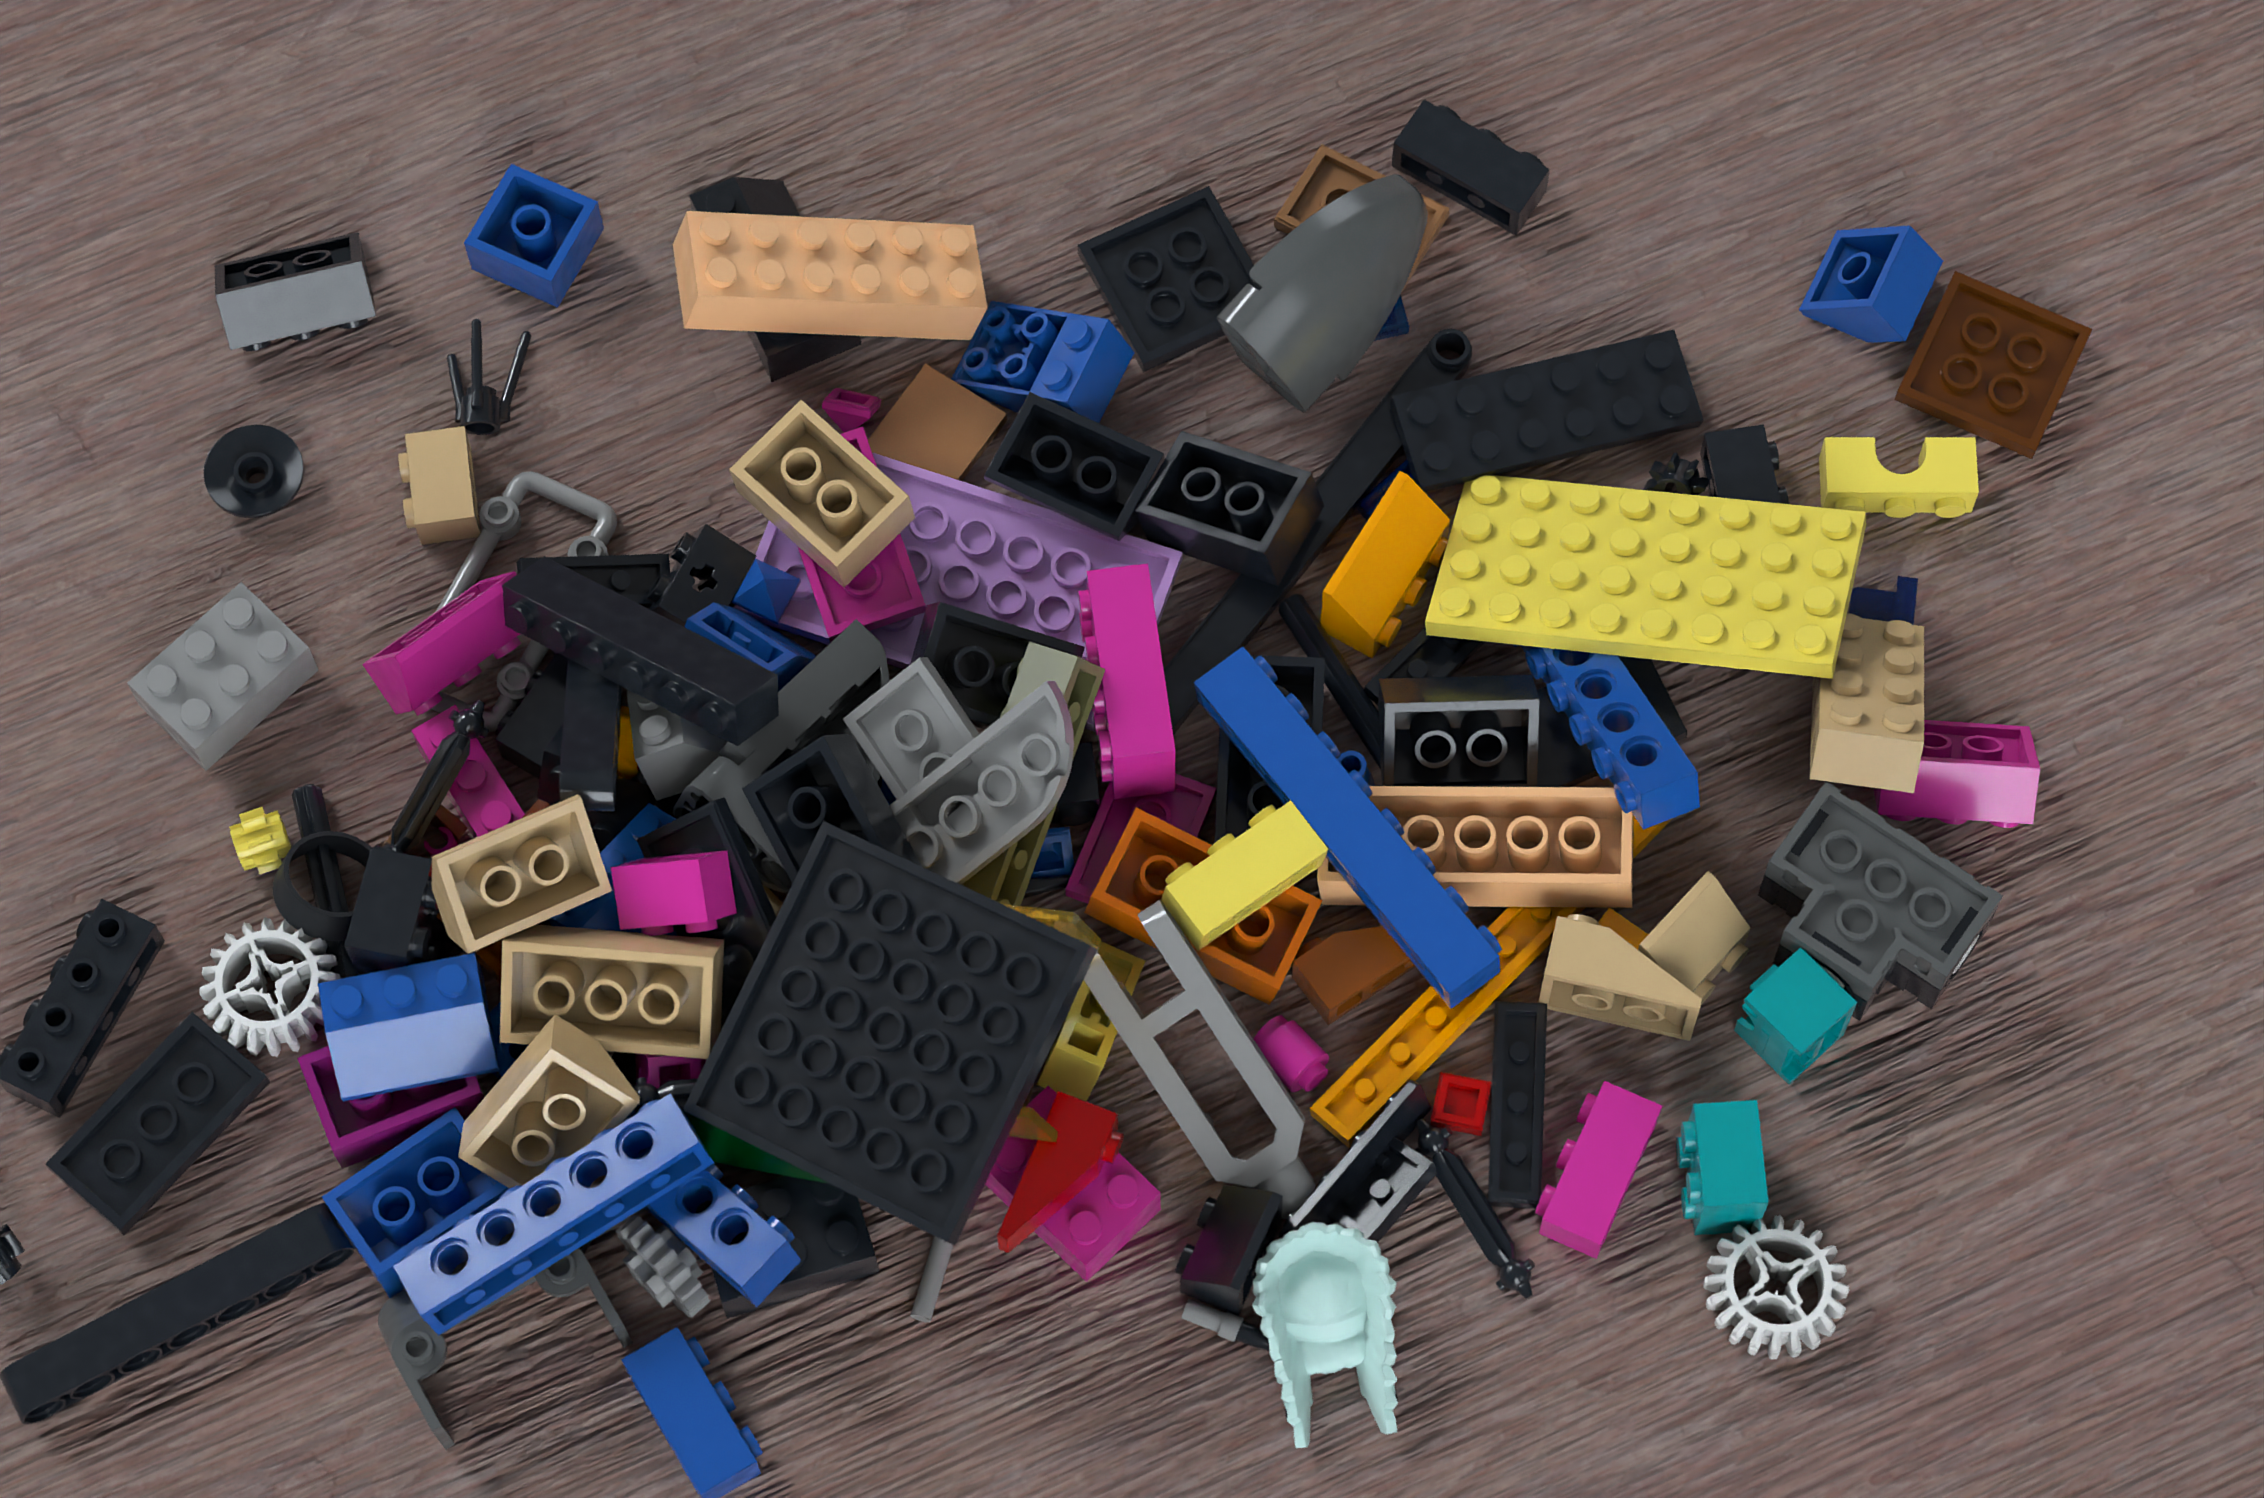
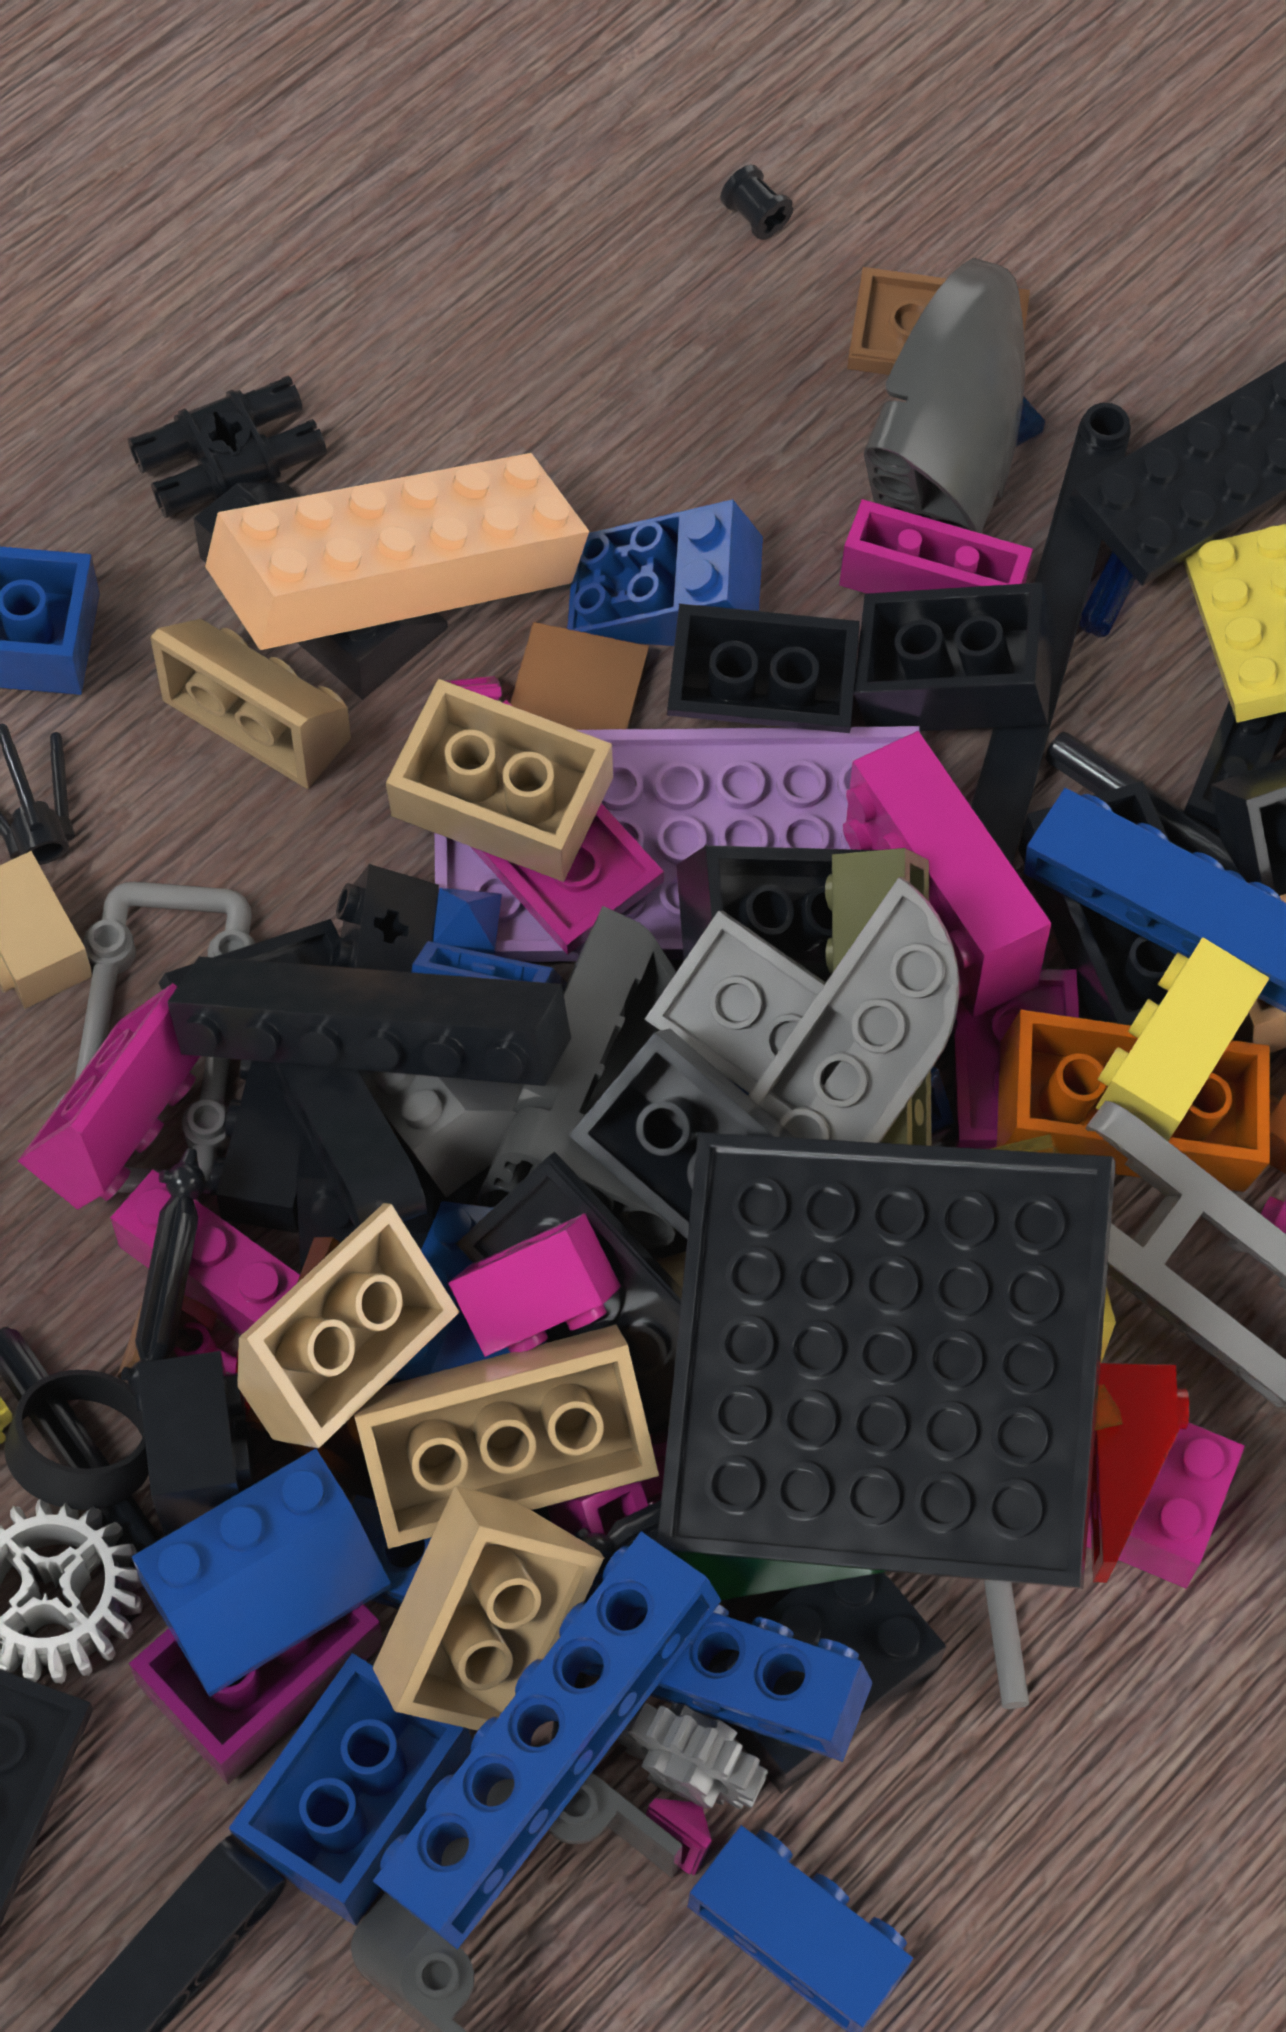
camera: 25 degrees left, 5 degrees down
(638, 1314) = (687, 1825): none -> dark pink slope
(680, 359) = (250, 699): none -> tan slope
(730, 121) = (226, 445): none -> black pin
(1169, 276) = (769, 444): black plate -> none
(1250, 418) = (911, 552): none -> dark pink brick
(1259, 59) = (756, 202): none -> black bush
(1385, 568) = (1152, 671): light orange slope -> none
(1470, 166) = (1036, 239): black brick -> none

